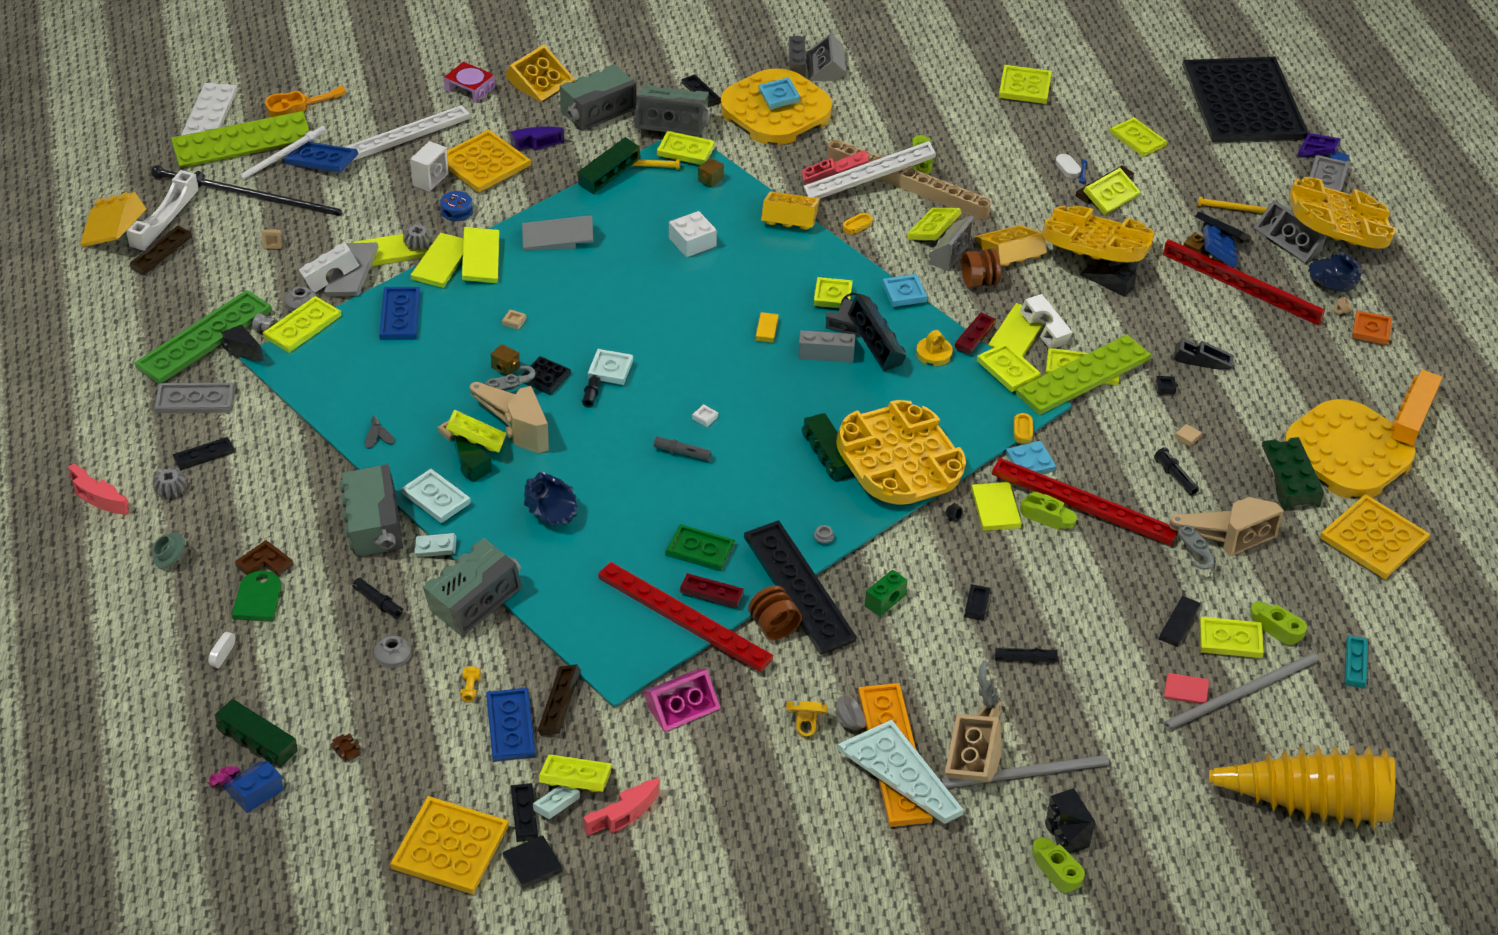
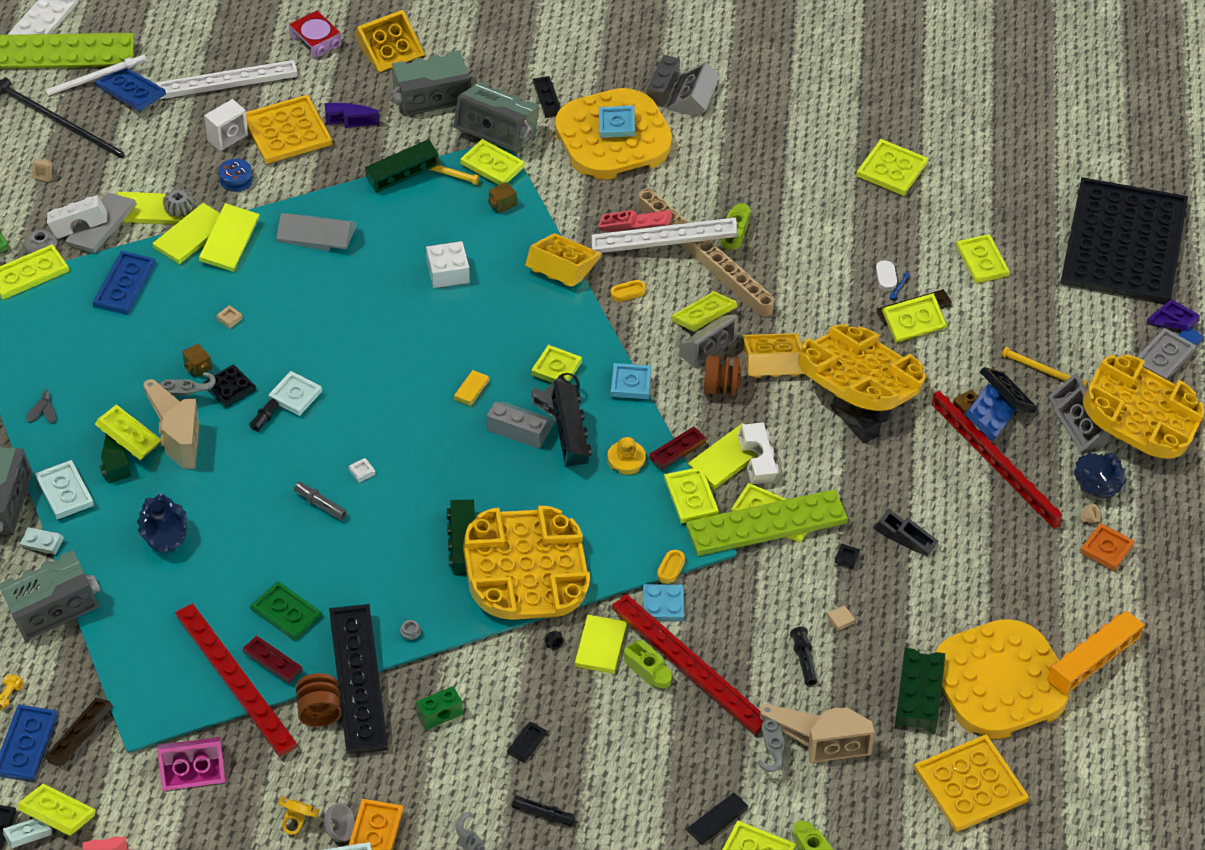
camera: 20 degrees right, 5 degrees up
(295, 101) = (126, 19): light orange piece -> none

